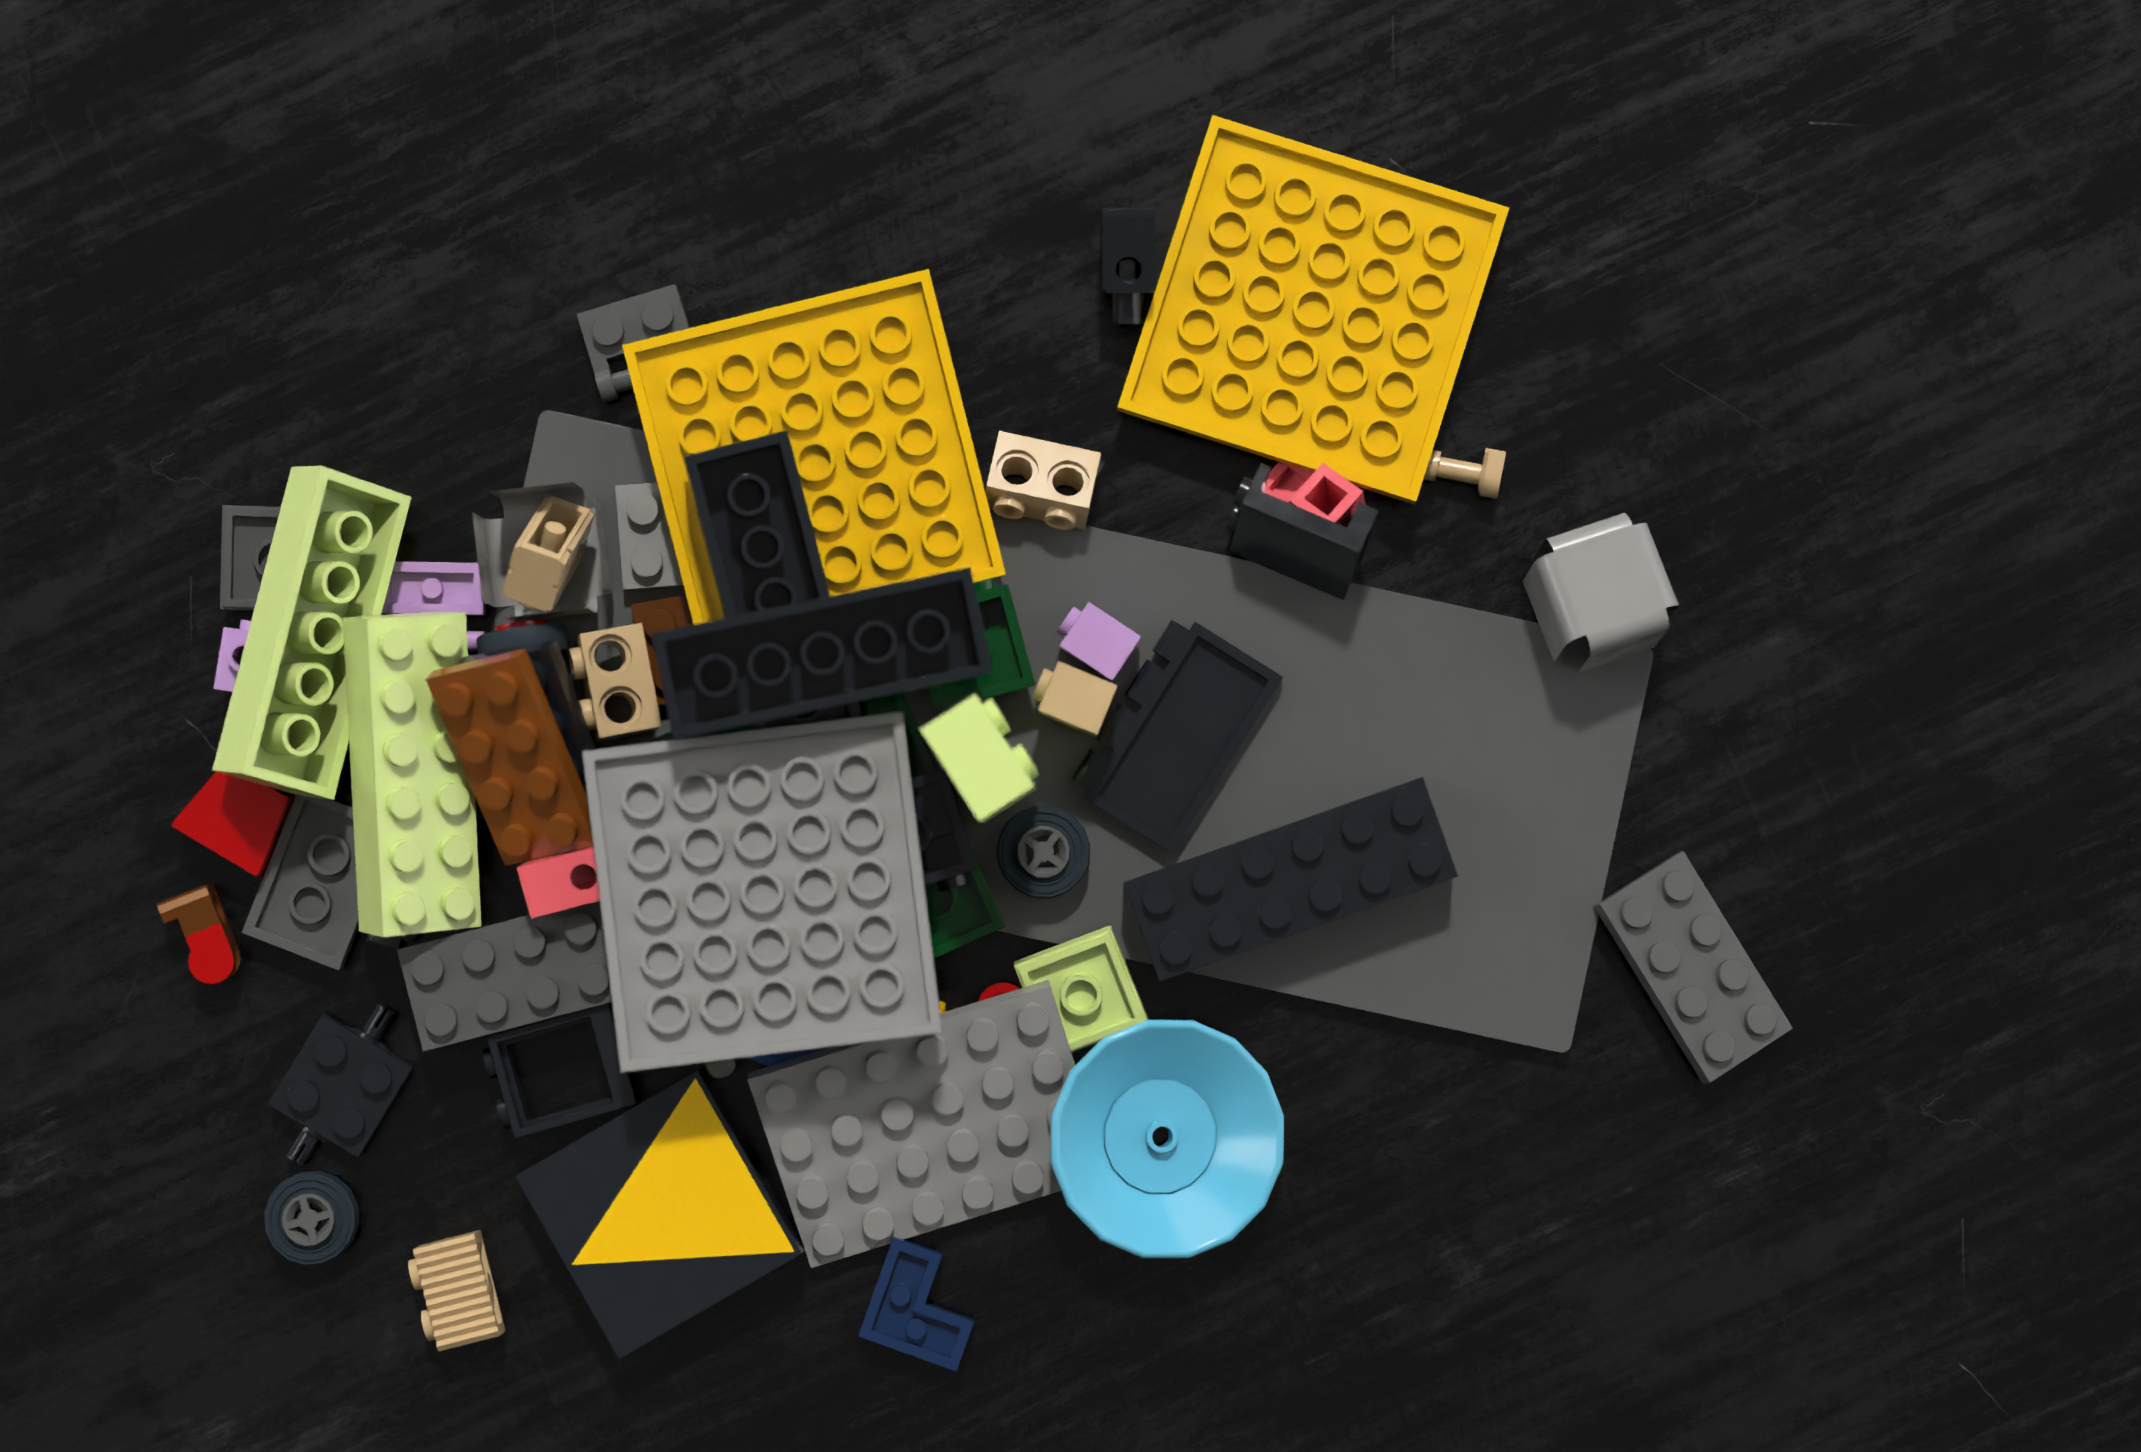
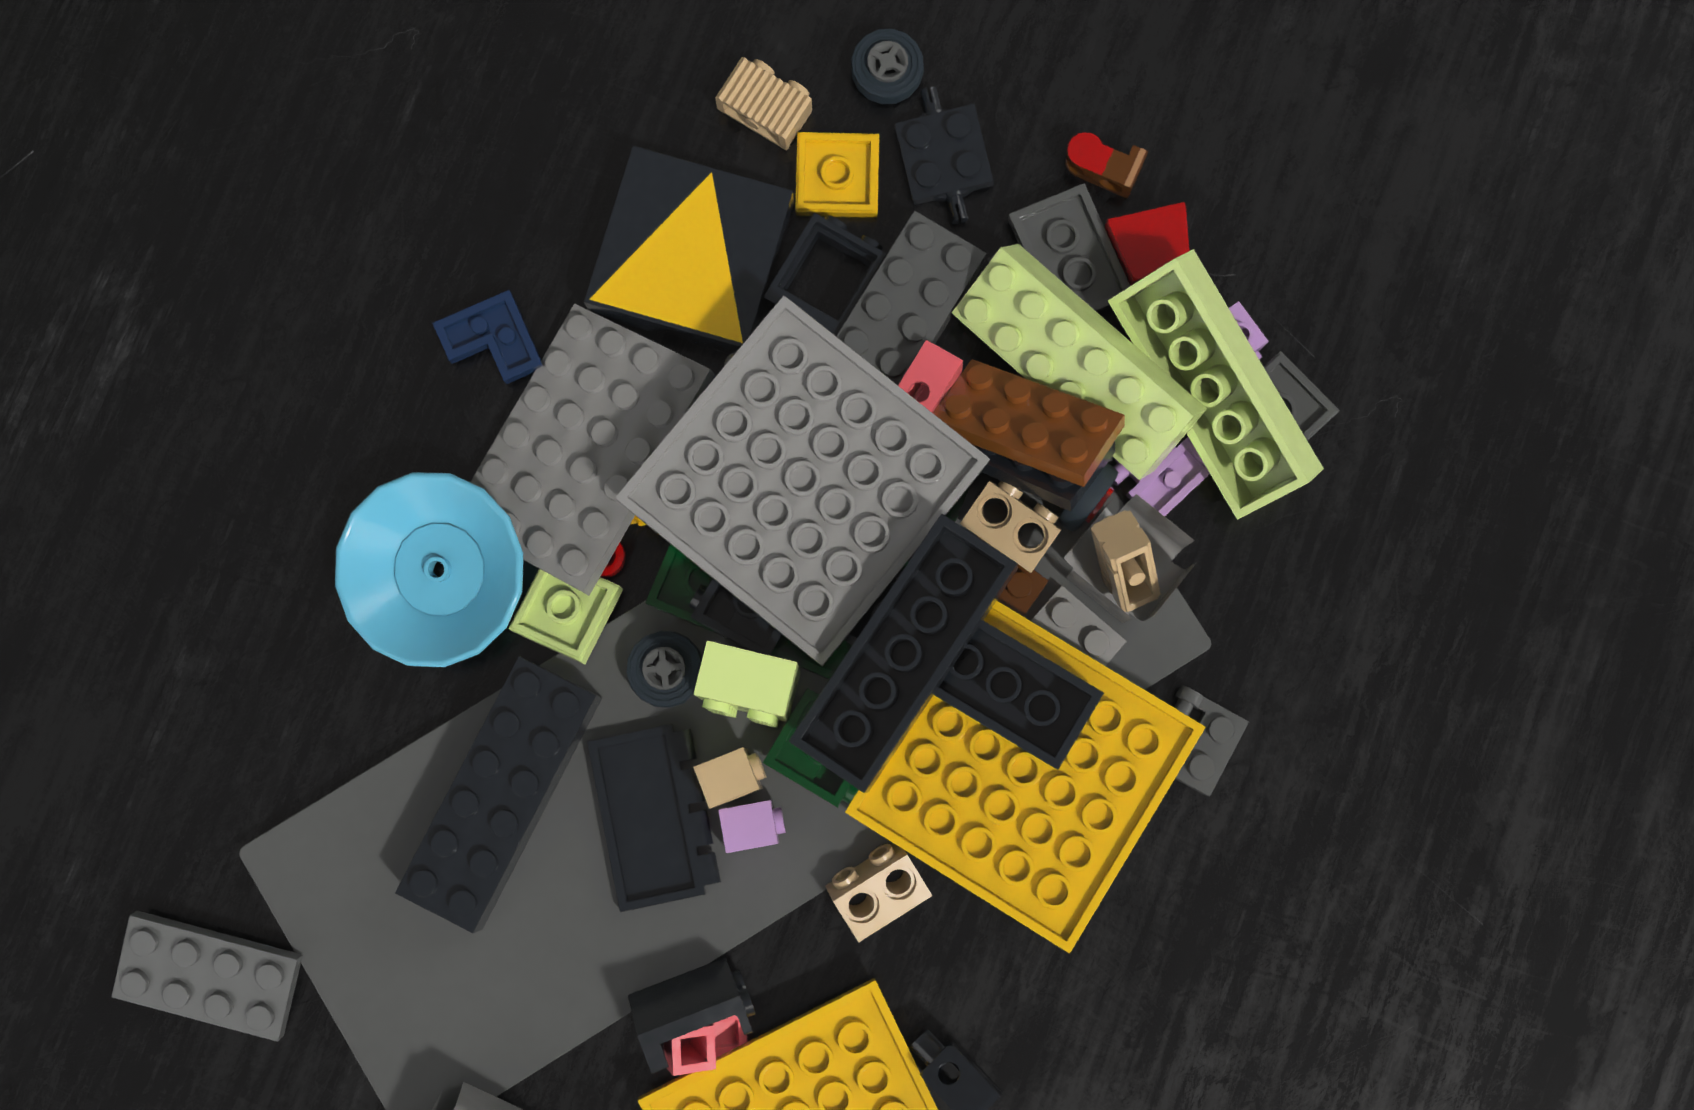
camera: 130 degrees right, 5 degrees down
(456, 1161) = (837, 174): none -> yellow tile

